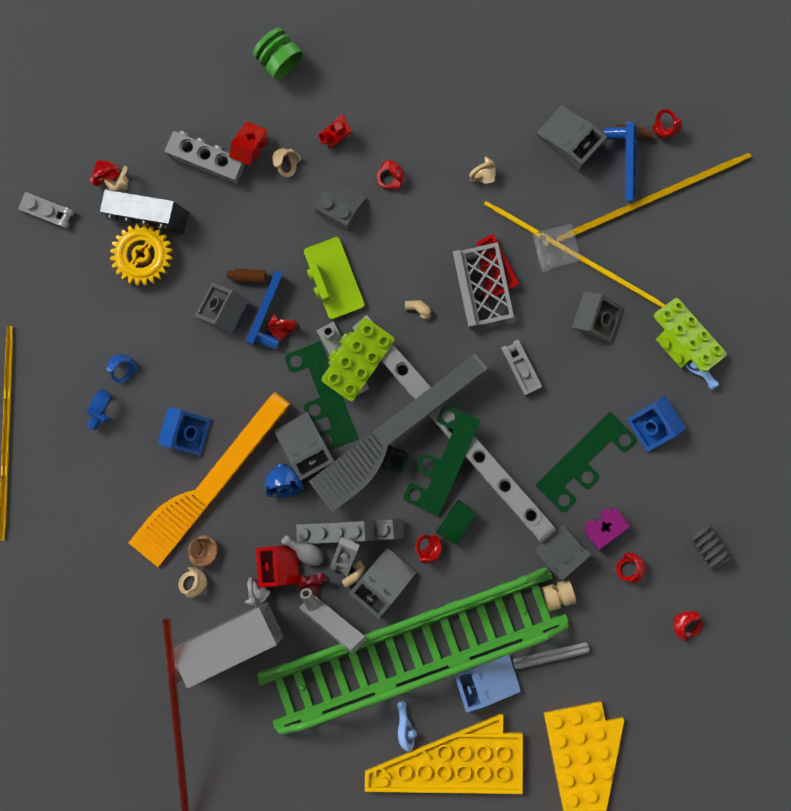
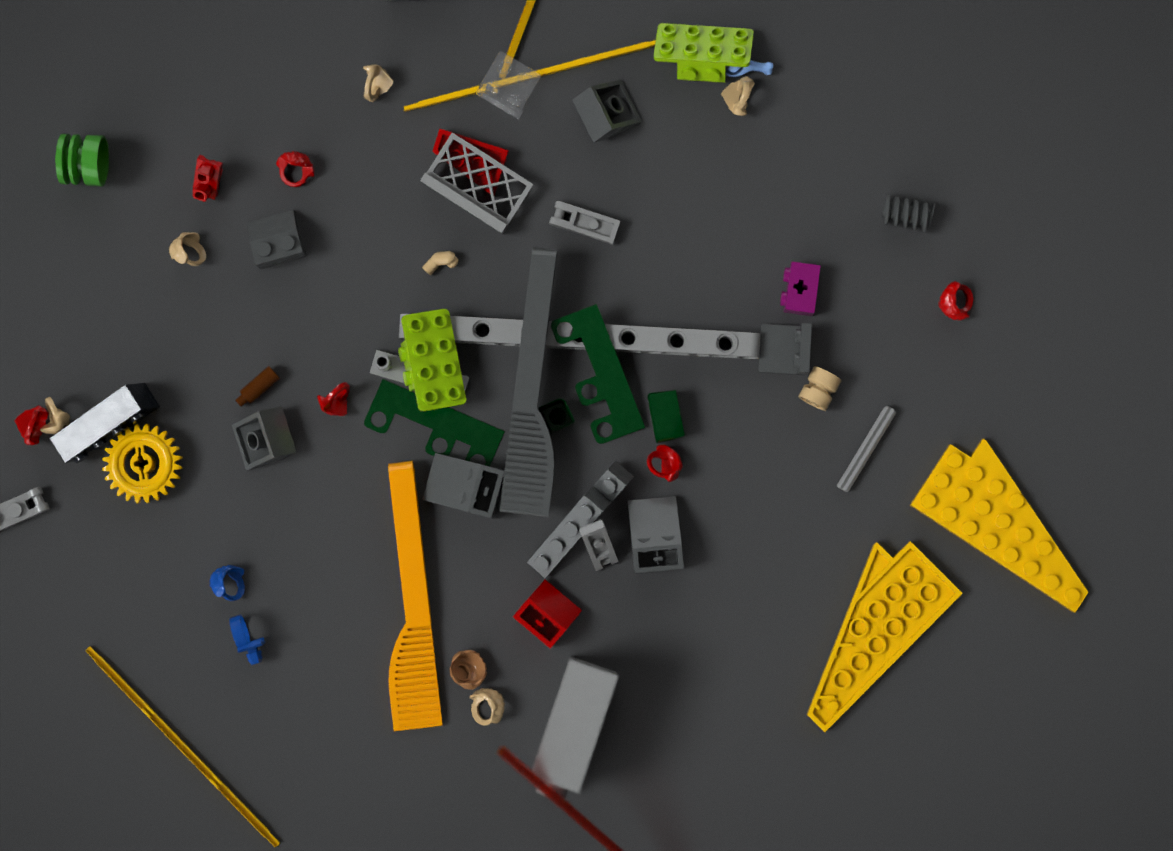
camera: 50 degrees left, 0 degrees up
(179, 141) = (73, 323): light grey brick -> none
(184, 431) = (342, 581): blue slope -> none
(248, 143) = (138, 267): red brick -> none
(255, 334) = (317, 431): blue piece -> none
(256, 594) = (554, 658): light grey piece -> none
(282, 481) = (477, 535): blue cylinder -> none
(306, 553) = (561, 577): light grey piece -> none
(312, 582) = (594, 601): dark red piece -> none
(331, 622) = (644, 613): light grey piece -> none
(333, 278) = (337, 311): lime bracket -> none
(355, 576) = (625, 553): tan arm -> none
(405, 730) = (806, 643): light blue piece -> none
(457, 662) = (752, 622): bright green ladder -> none
(487, 683) = (834, 528): medium blue slope -> none
(577, 460) = (715, 252): dark green piece -> none
(640, 567) = (848, 292): red piece -> none
(656, 423) = (753, 152): blue slope -> none
(680, 381) = (737, 95): none -> tan piece

